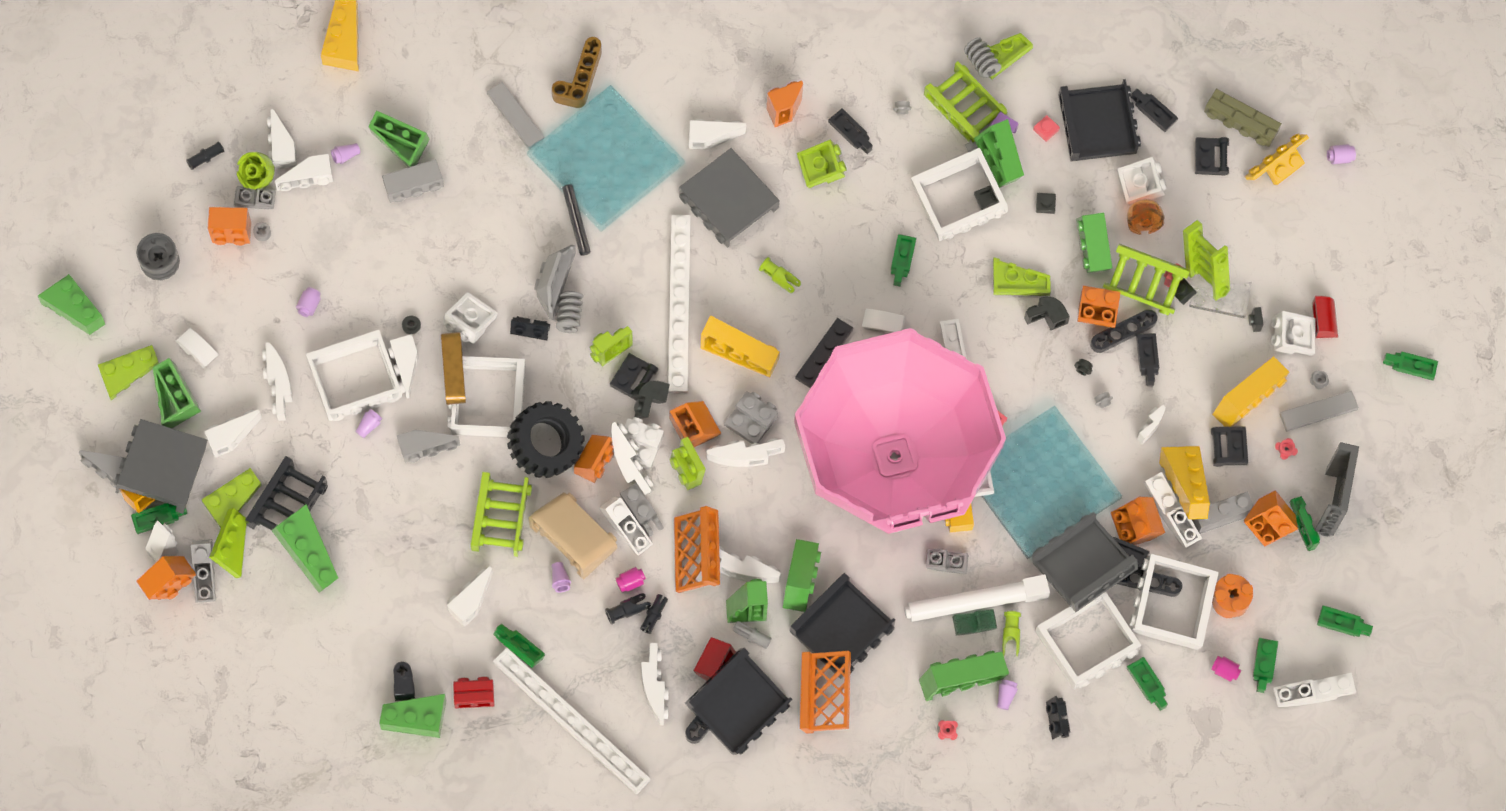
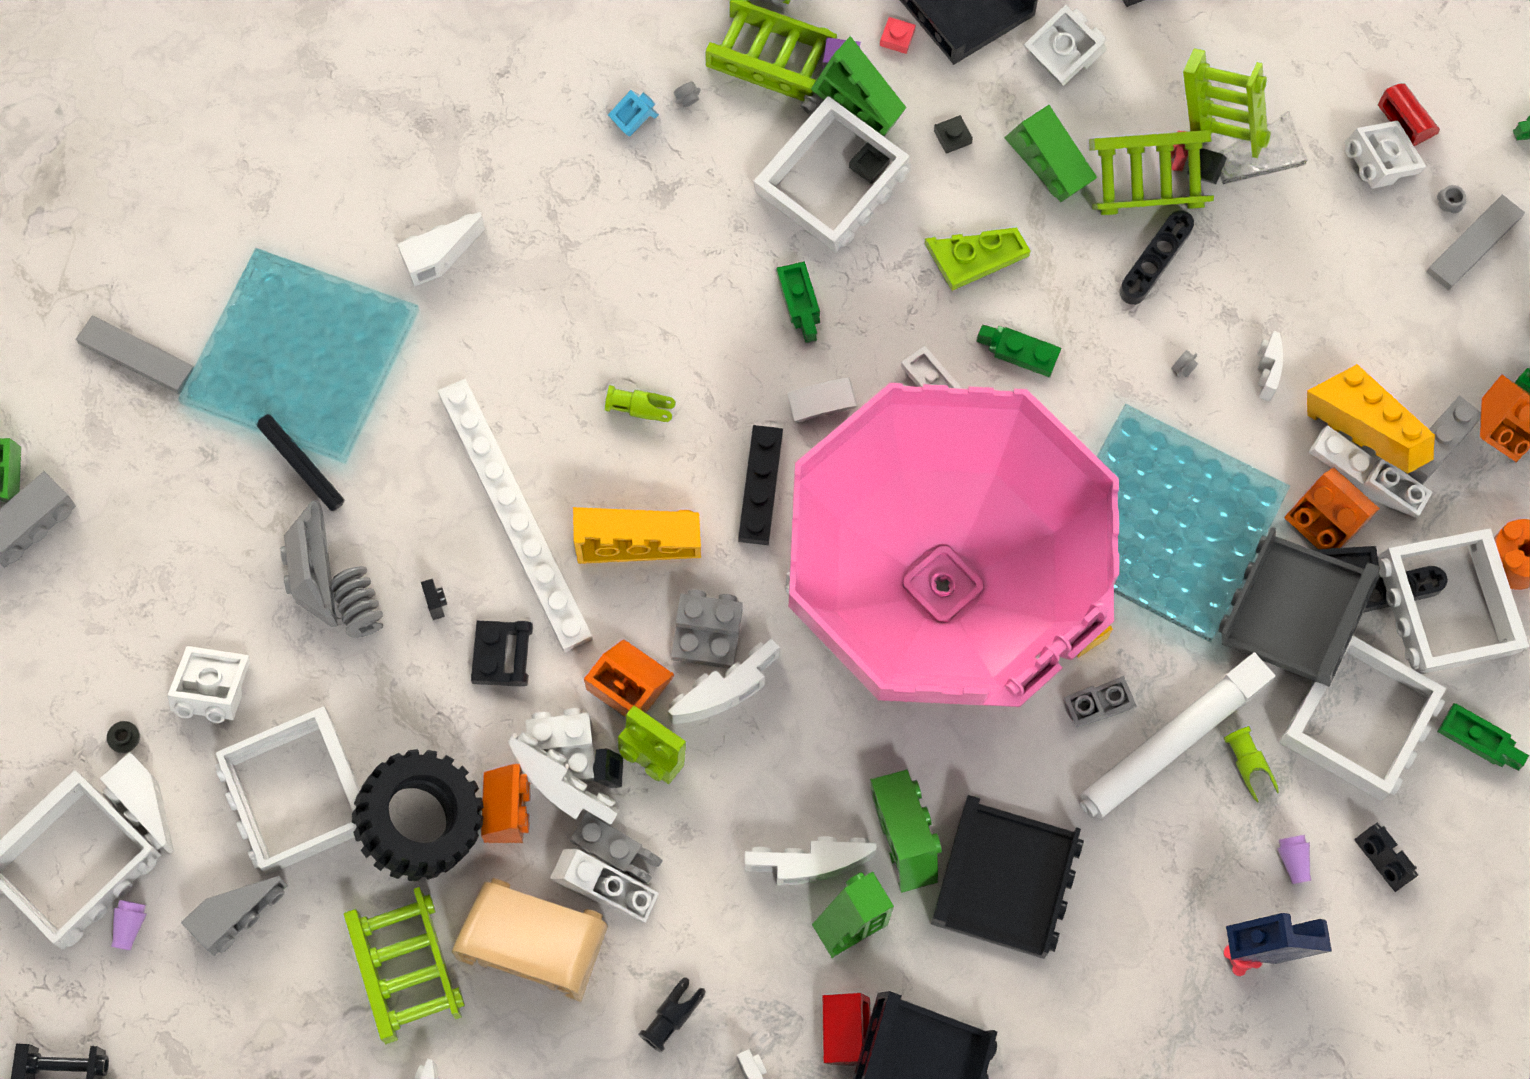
camera: 25 degrees left, 0 degrees up
(453, 368) = (220, 774): pearl gold beam -> none
(522, 327) = (297, 658): black hinge -> none
(560, 579) = (545, 1019): lavender cone -> none
(582, 72) = (205, 247): pearl gold beam -> none
(607, 347) = (441, 627): lime plate -> none
(612, 327) = (435, 598): none -> black plate
(630, 579) = (654, 966): dark pink brick -> none
(647, 393) = (535, 670): pearl dark grey brick -> none
(654, 613) = (717, 1002): black pin -> none
(659, 465) = (608, 768): none -> black plate
(708, 547) = (748, 858): orange fence -> none
(727, 196) = (506, 327): dark grey panel -> none
(752, 634) = (880, 958): light grey axle -> none
(784, 102) = (519, 160): orange slope -> none
(809, 696) = (1013, 1006): orange fence -> none
(821, 163) = (616, 220): lime plate -> none
(851, 130) = (633, 157): black hinge -> none
(865, 103) = (632, 111): none -> medium azure bracket
(958, 723) = (1277, 940): none -> dark blue panel
(963, 674) = (1221, 861): bright green wedge -> none
(974, 622) = (1189, 773): clear green slope -> none
(1013, 346) = (1020, 349): none -> green hinge
(1051, 310) = (1044, 274): pearl dark grey brick -> none
(1083, 367) = (1133, 331): pearl dark grey plate -> none
(1098, 306) = (1107, 238): orange slope -> none
(1145, 216) = (1099, 88): clear orange cylinder -> none
(1148, 357) = (1211, 276): black hinge -> none
(1236, 446) = (1397, 340): black plate -> none
(1251, 392) = (1378, 260): yellow wedge -> none
(1256, 319) = (1324, 157): pearl dark grey plate -> none
(1284, 454) = (1470, 307): coral plate -> none

